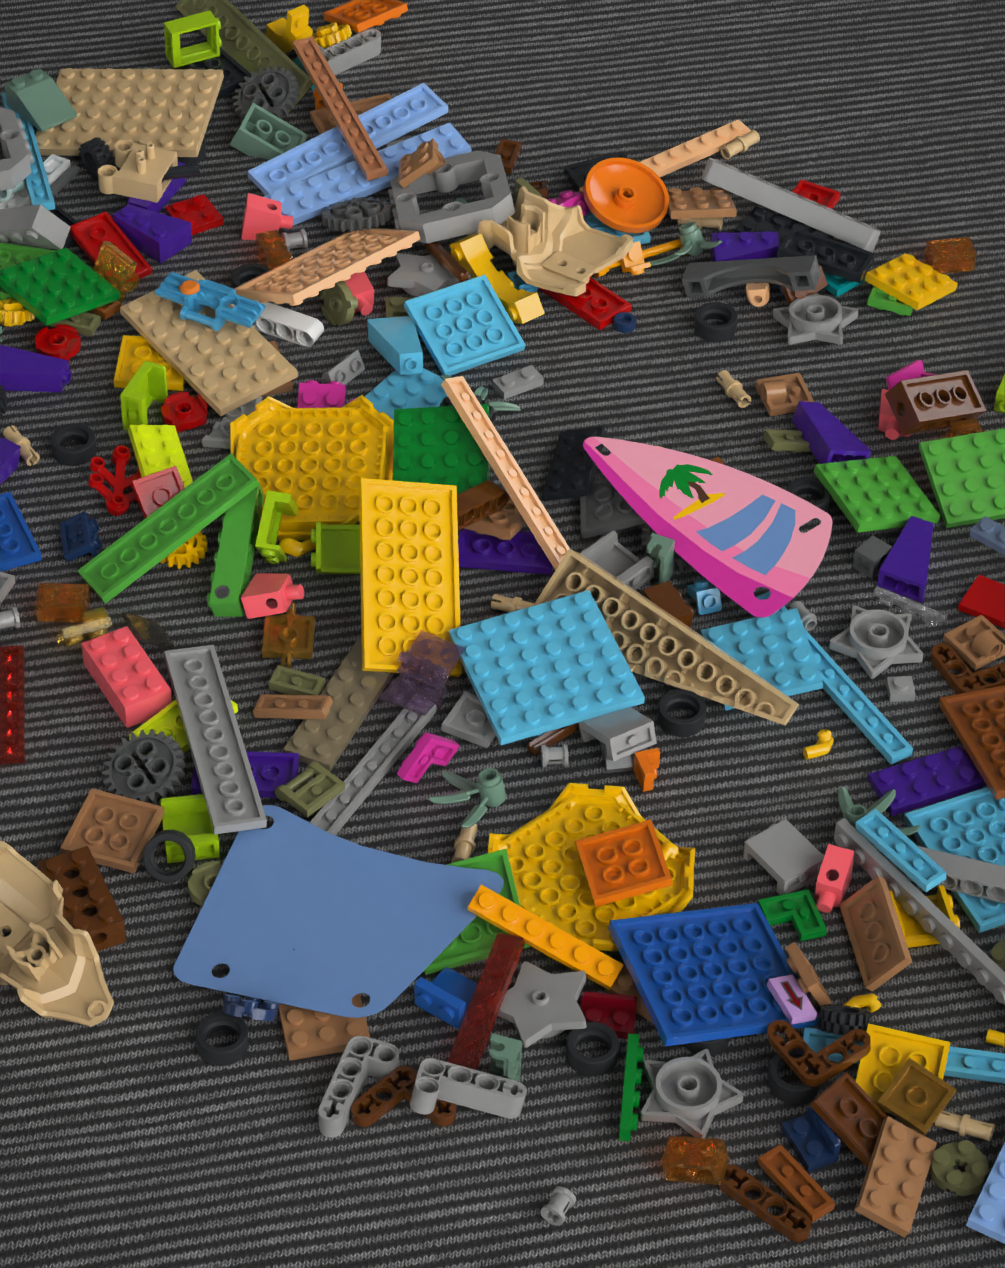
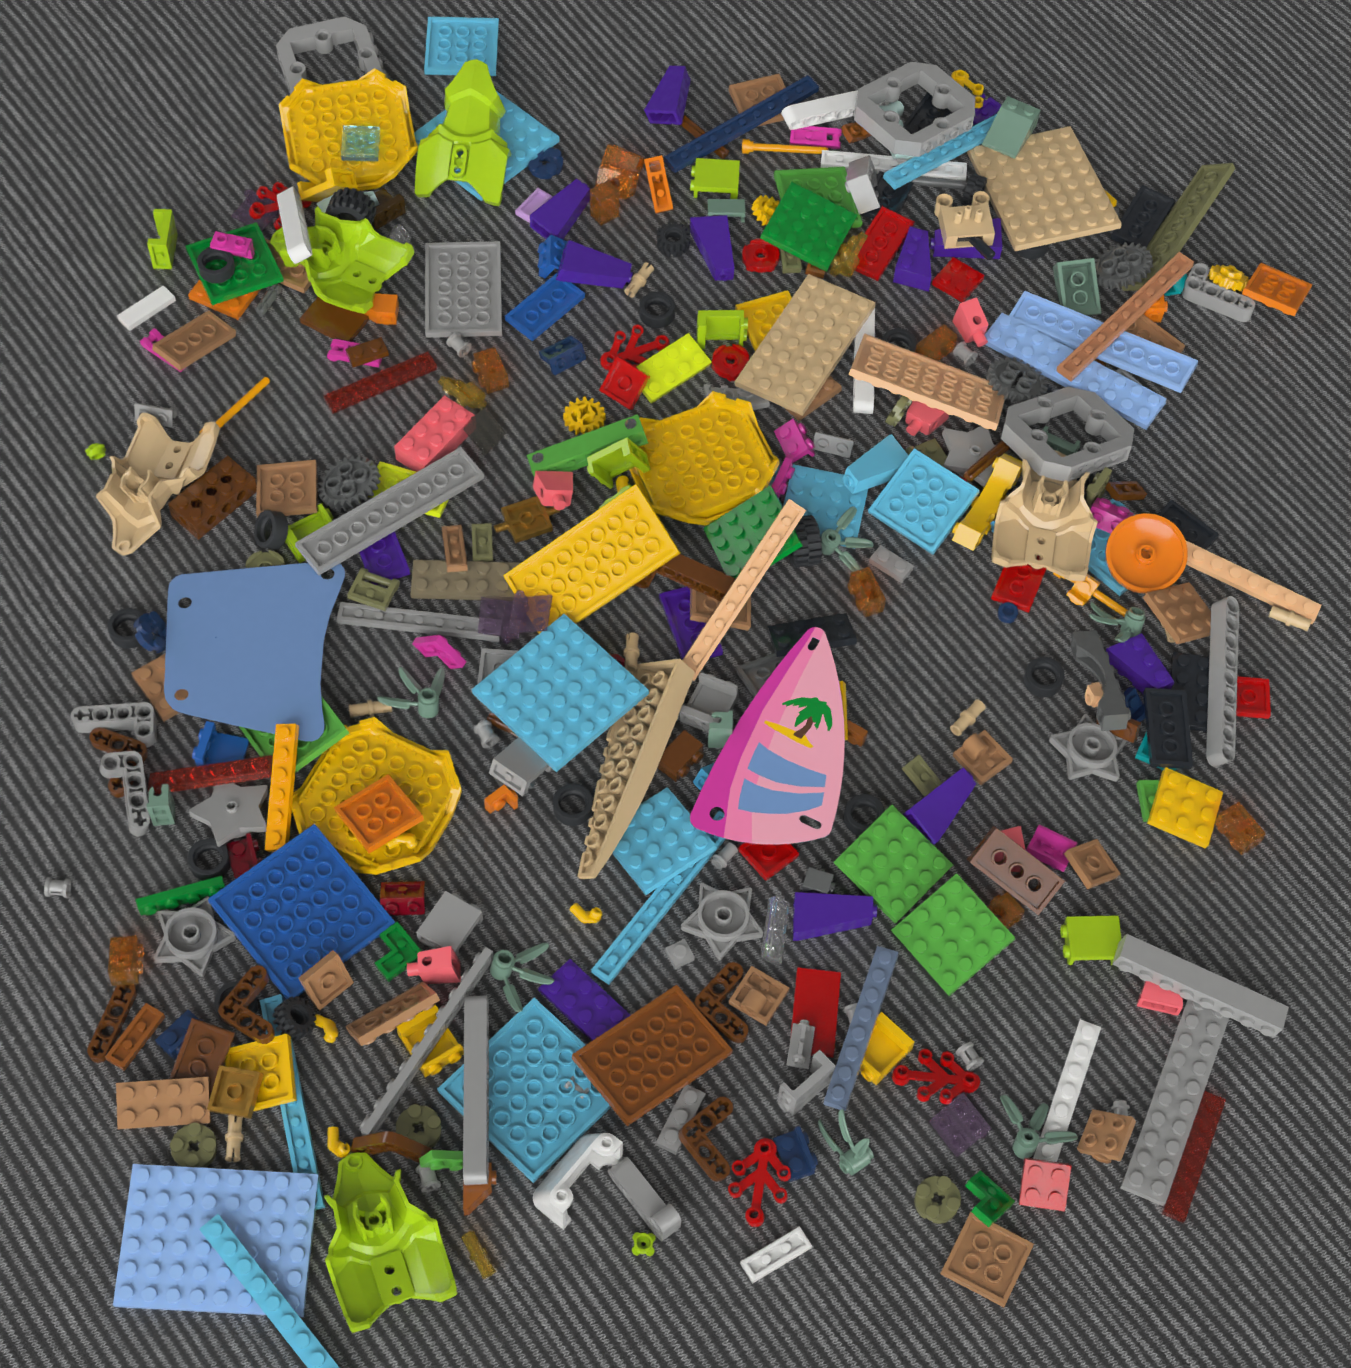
camera: 65 degrees right, 15 degrees up
(168, 528) = (581, 398): bright green plate -> none
(195, 53) = (1140, 196): lime window -> none
(197, 294) = (838, 322): dark azure piece -> none
(284, 32) = (1209, 248): yellow arch -> none
(423, 160) = (1087, 395): medium nougat plate -> none
(509, 153) = (1161, 455): reddish brown plate -> none
(549, 403) = (866, 592): none -> clear orange brick
(727, 886) = (403, 897): none -> dark red bracket
(791, 999) = (287, 978): lavender tile -> none
(823, 585) = (768, 858): none -> red plate
(901, 850) = (469, 1001): medium azure plate -> none
(944, 360) = (1092, 863): none -> medium nougat plate

